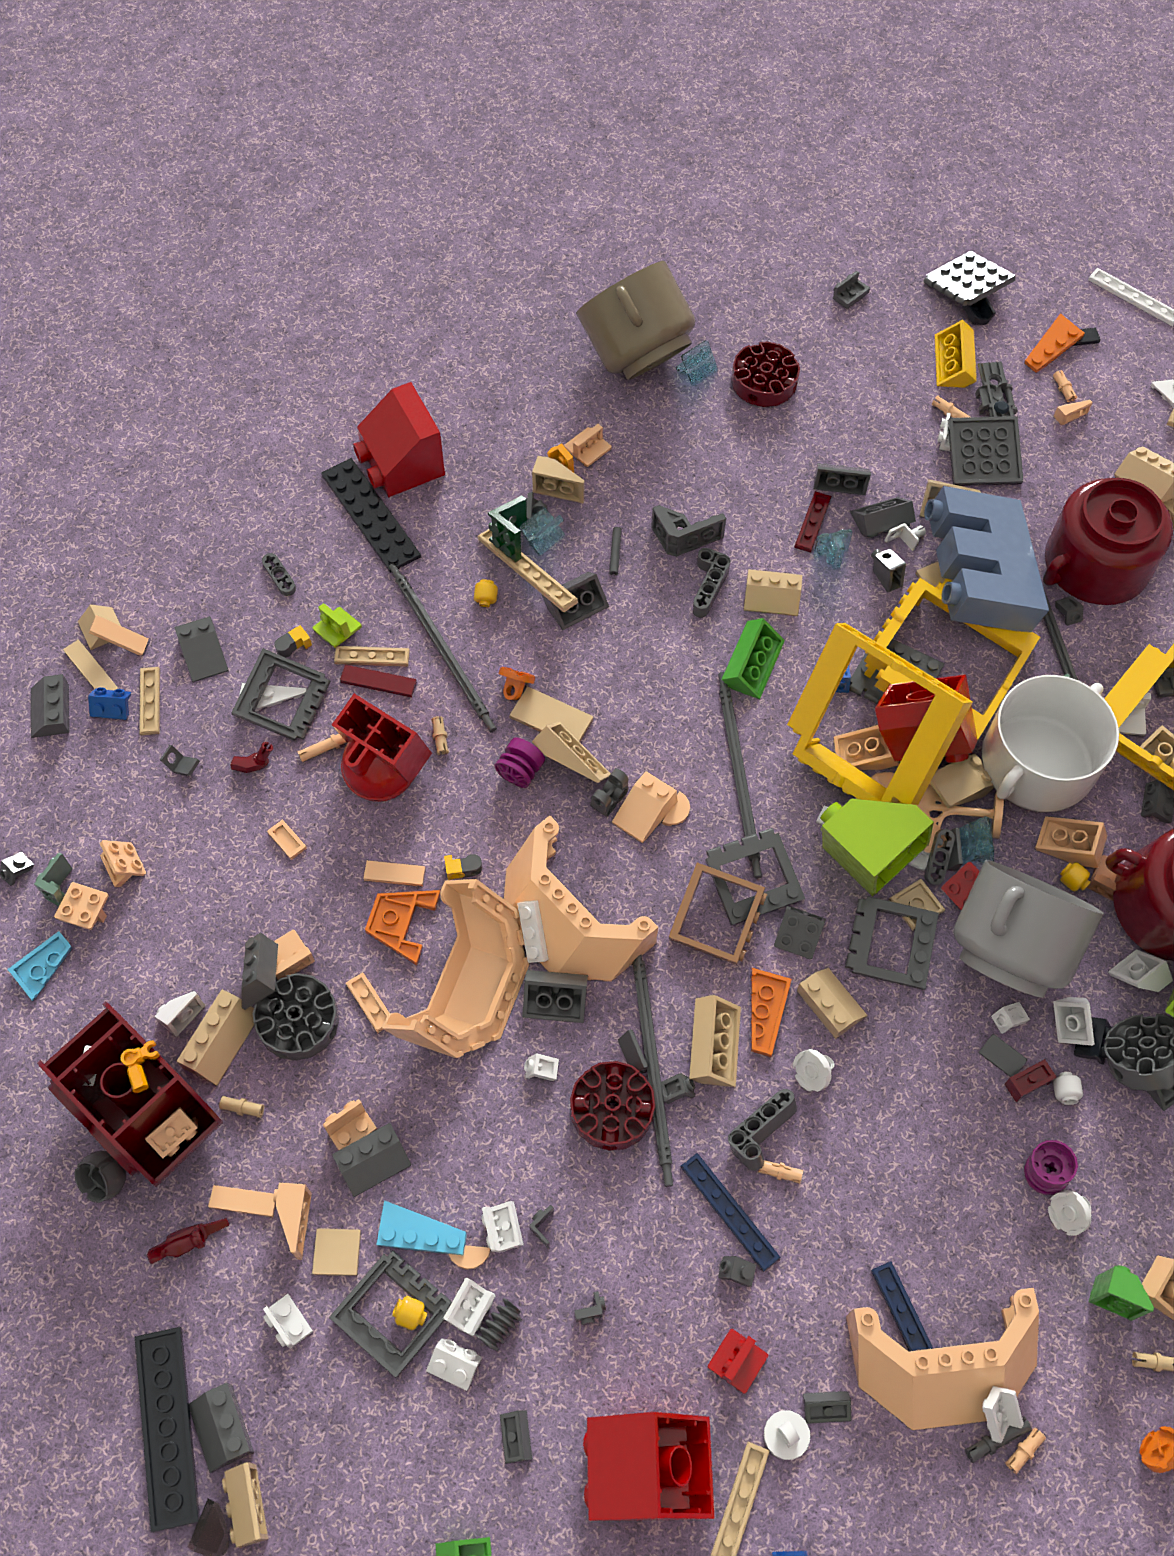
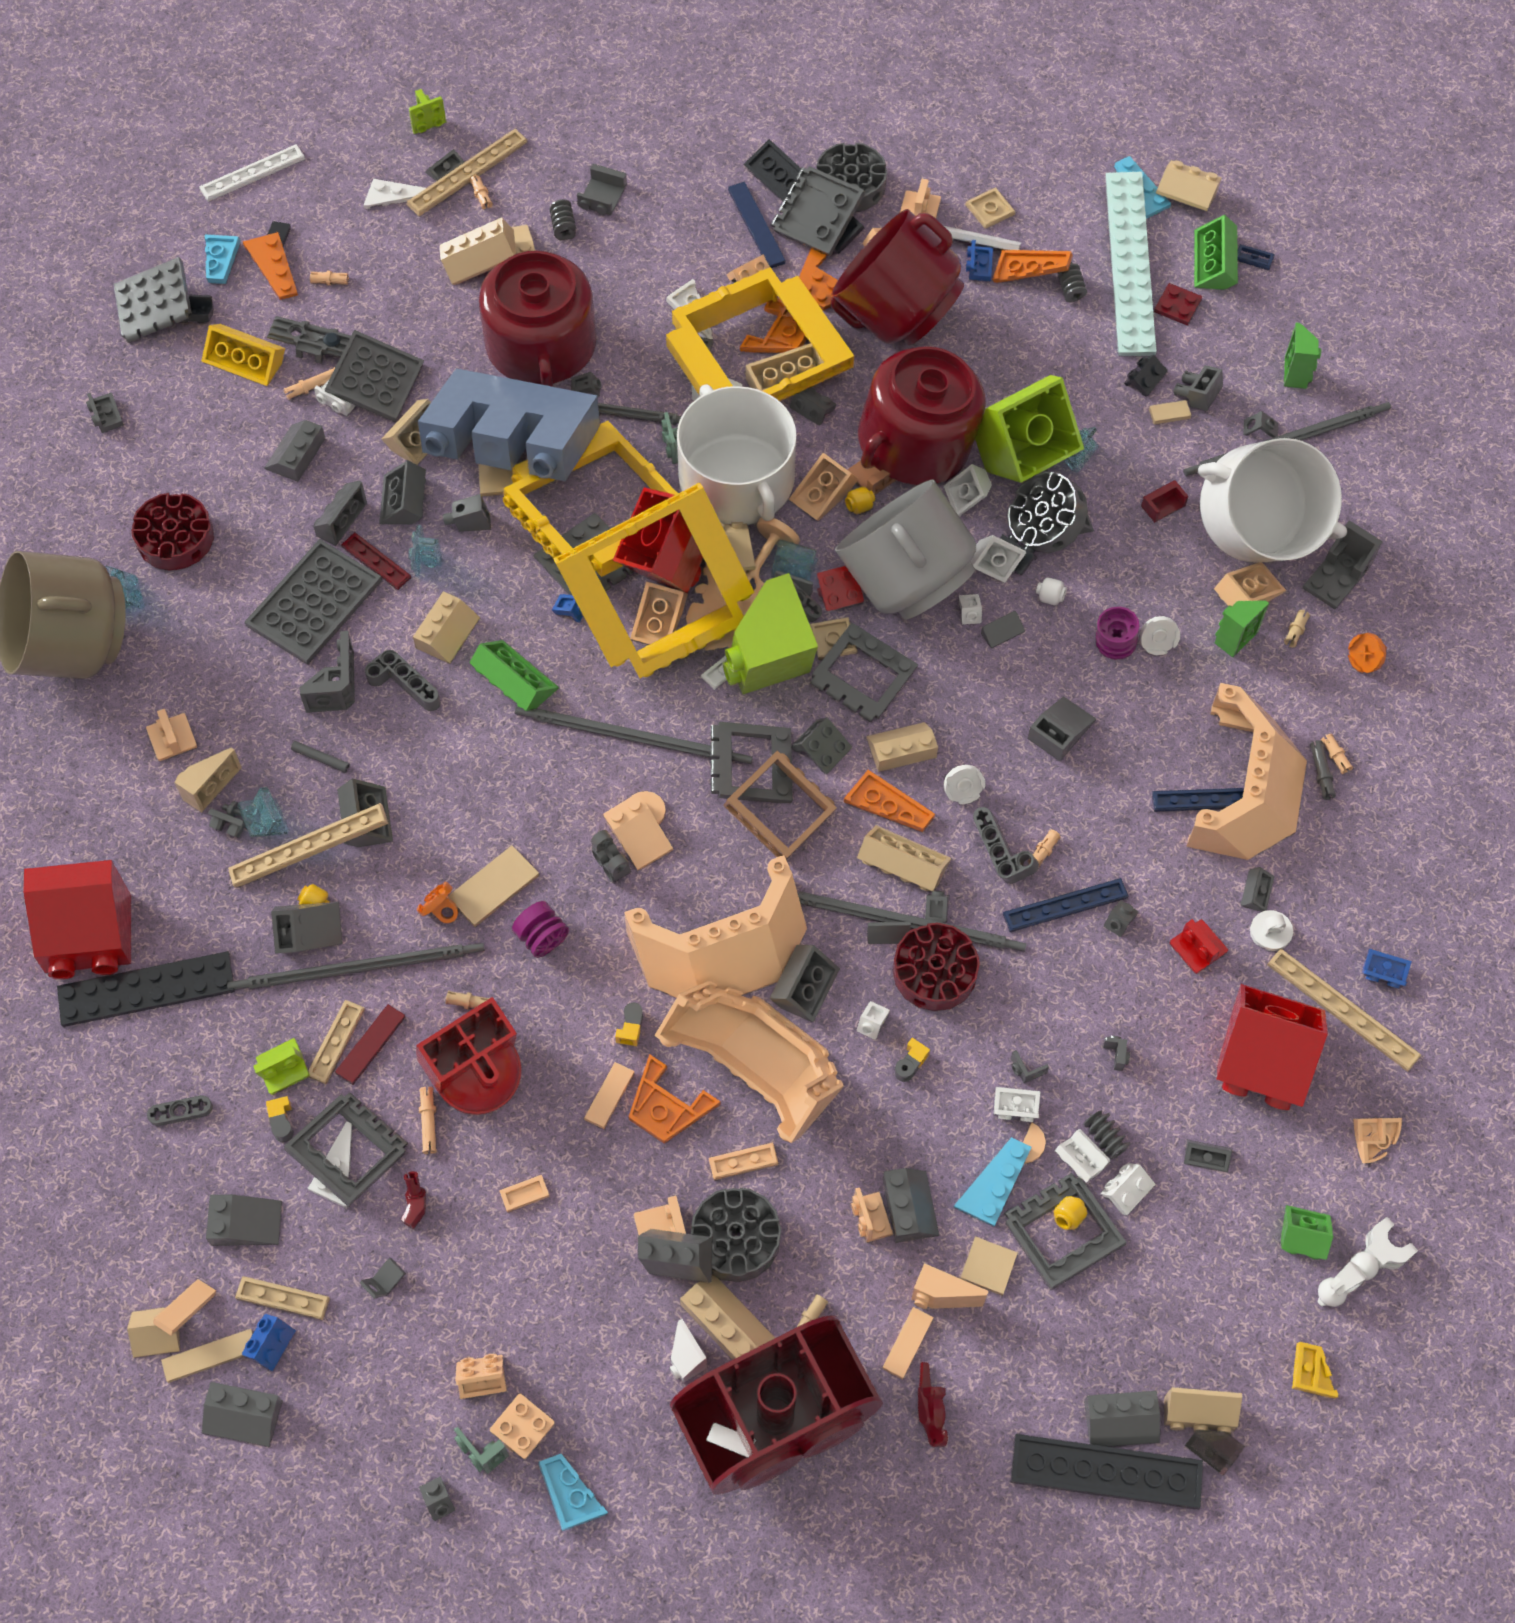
camera: 70 degrees left, 0 degrees up
(100, 1176) = (841, 1480): dark grey piece -> none
(132, 1059) = (763, 1369): light orange bar -> none
(171, 1132) = (835, 1370): light nougat bracket -> none
(287, 1321) = (1041, 1330): white bracket -> none
(456, 594) = (306, 926): none -> dark grey slope
(506, 532) = (251, 849): dark green bracket -> none
(512, 1116) = (907, 1067): none -> leg
(532, 931) = (734, 977): white plate -> none
(562, 455) = (182, 760): light orange bracket -> none
(564, 748) = (546, 880): tan slope -> none
(752, 492) = (313, 601): none -> dark grey plate
(885, 428) = (296, 450): none -> dark grey slope
(909, 536) = (438, 482): white bracket -> none
(920, 1145) = (1060, 728): none -> dark grey slope
(1001, 1412) = (1305, 752): white bracket -> none
(1030, 1080) = (1034, 616): dark red panel -> none
(1040, 307) = (220, 257): none -> medium azure wing
(1070, 412) = (363, 289): light nougat slope -> none

